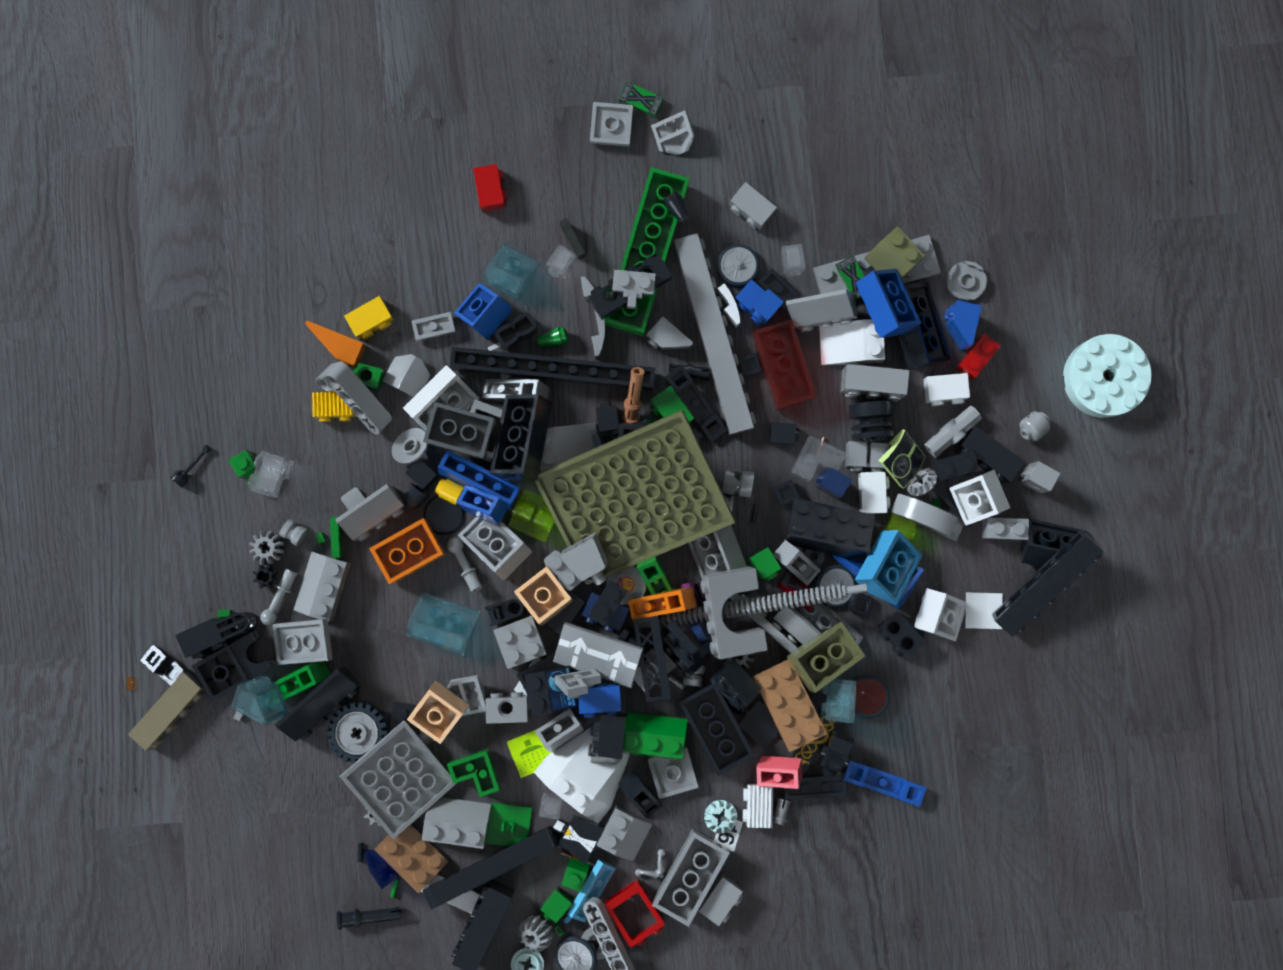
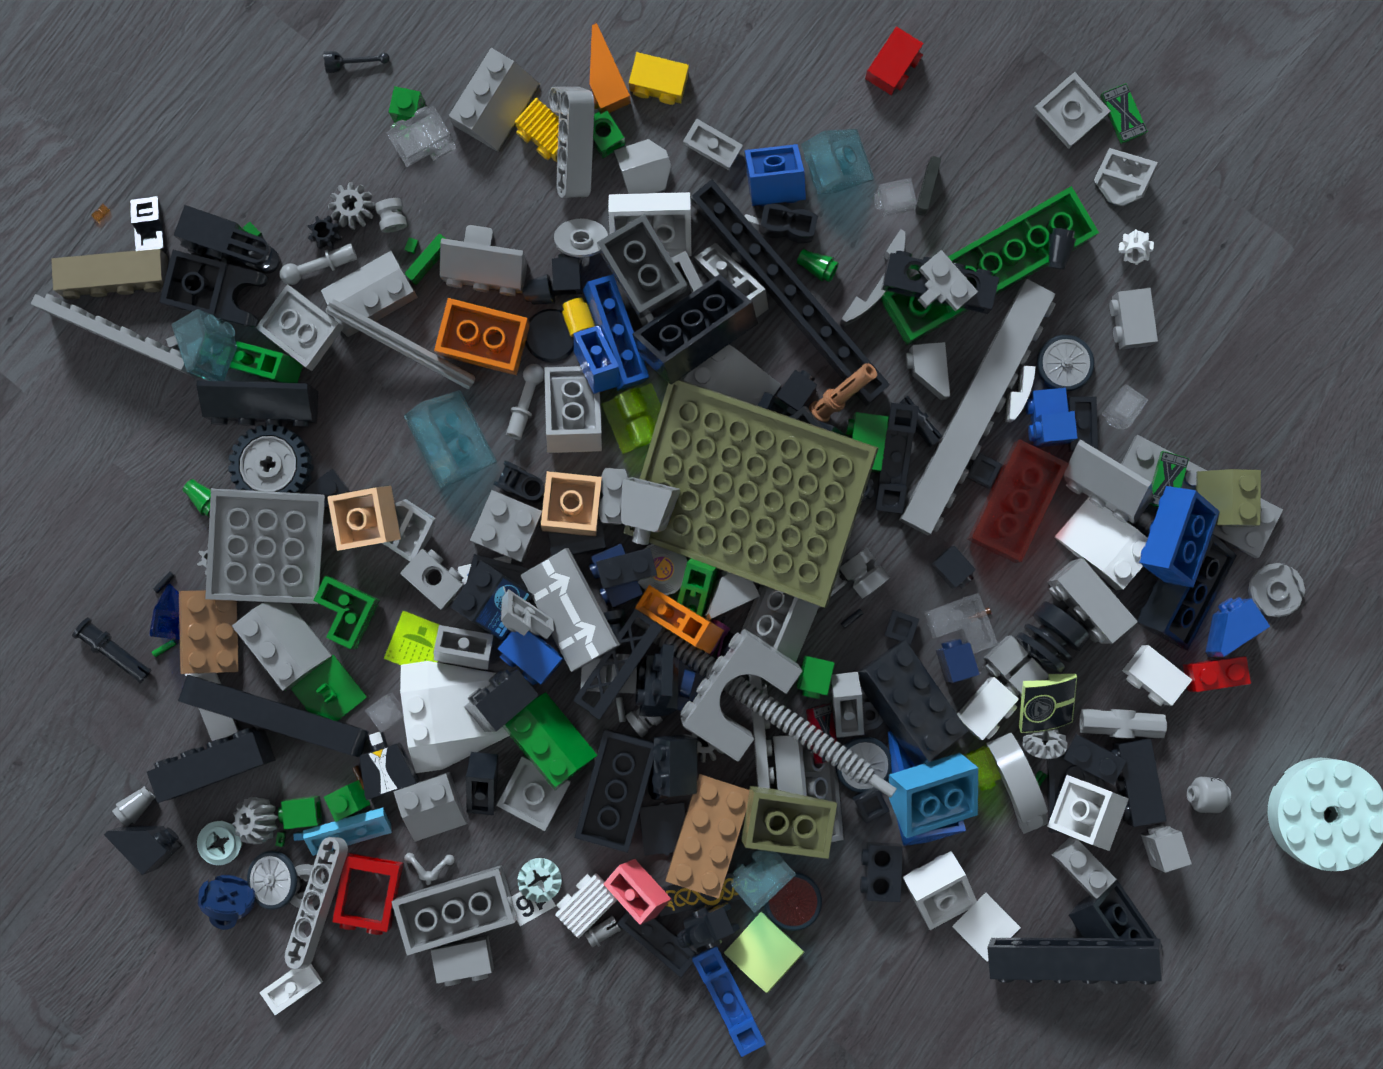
camera: 40 degrees right, 0 degrees up
(199, 743) = (110, 331): none -> light grey plate
(290, 415) = (493, 100): none -> light grey slope
(335, 786) = (199, 496): none -> green cone
(366, 598) = (400, 344): none -> light grey axle
(675, 563) = (729, 593): none -> light grey slope
(716, 166) = (1136, 247): none -> white gear
(878, 739) = (764, 952): none -> yellowish green slope

